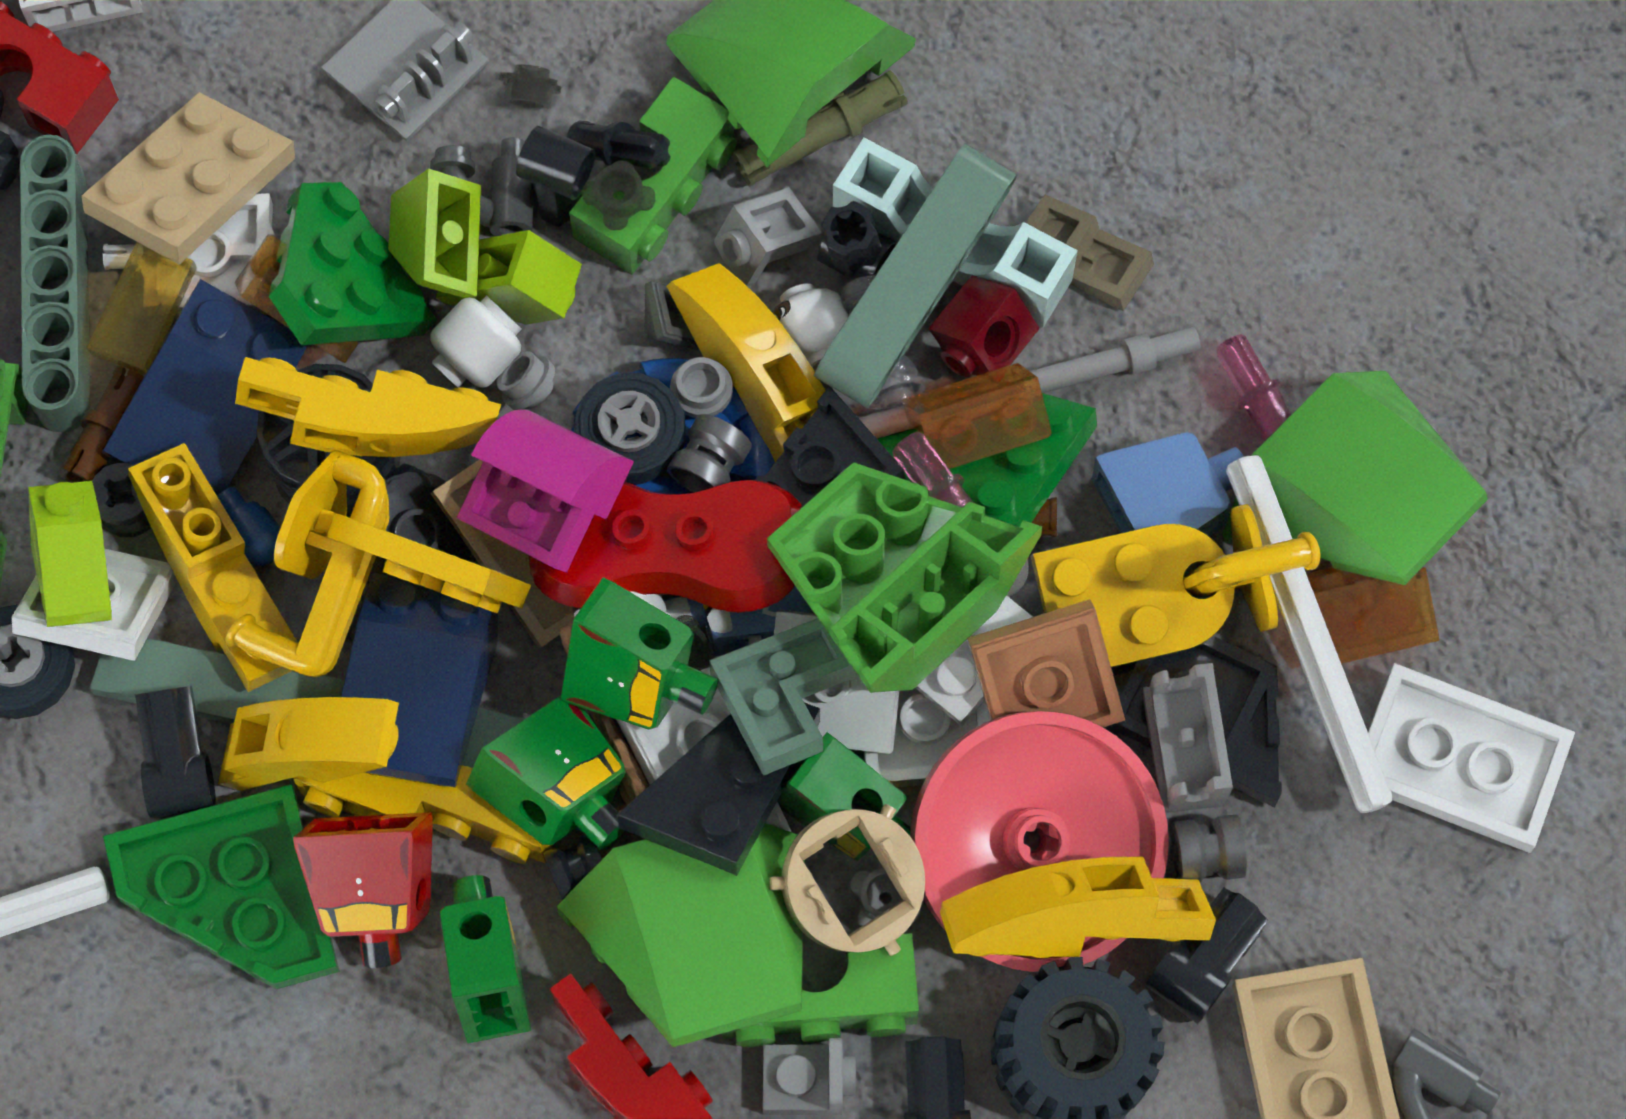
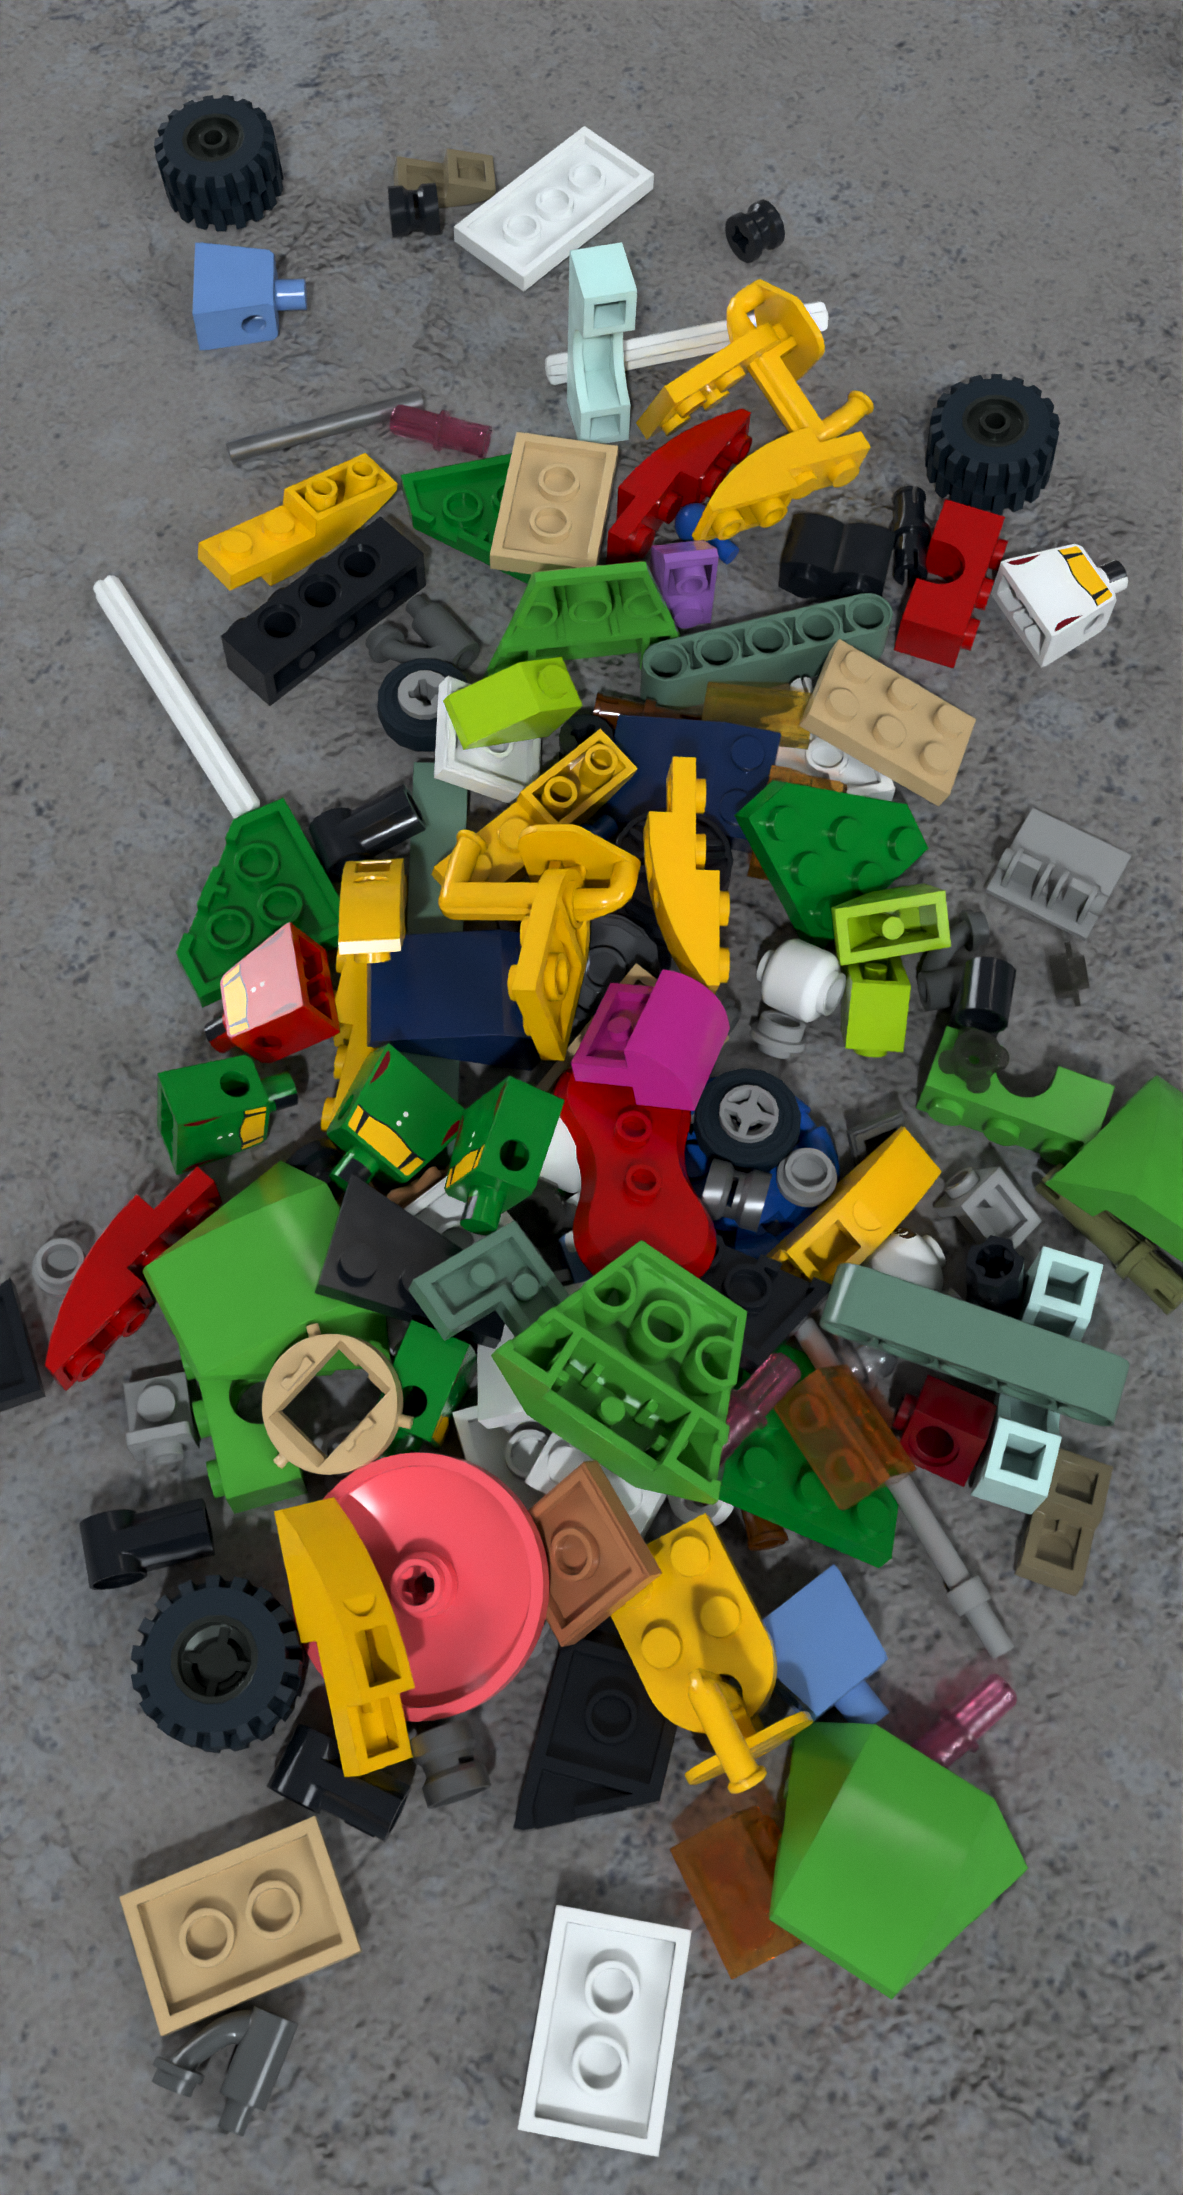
camera: 75 degrees right, 5 degrees down
(622, 143) = (1030, 1055): black axle -> none
(1187, 740) = (551, 1715): light grey hinge -> none
(1314, 645) = (689, 1827): white axle -> none

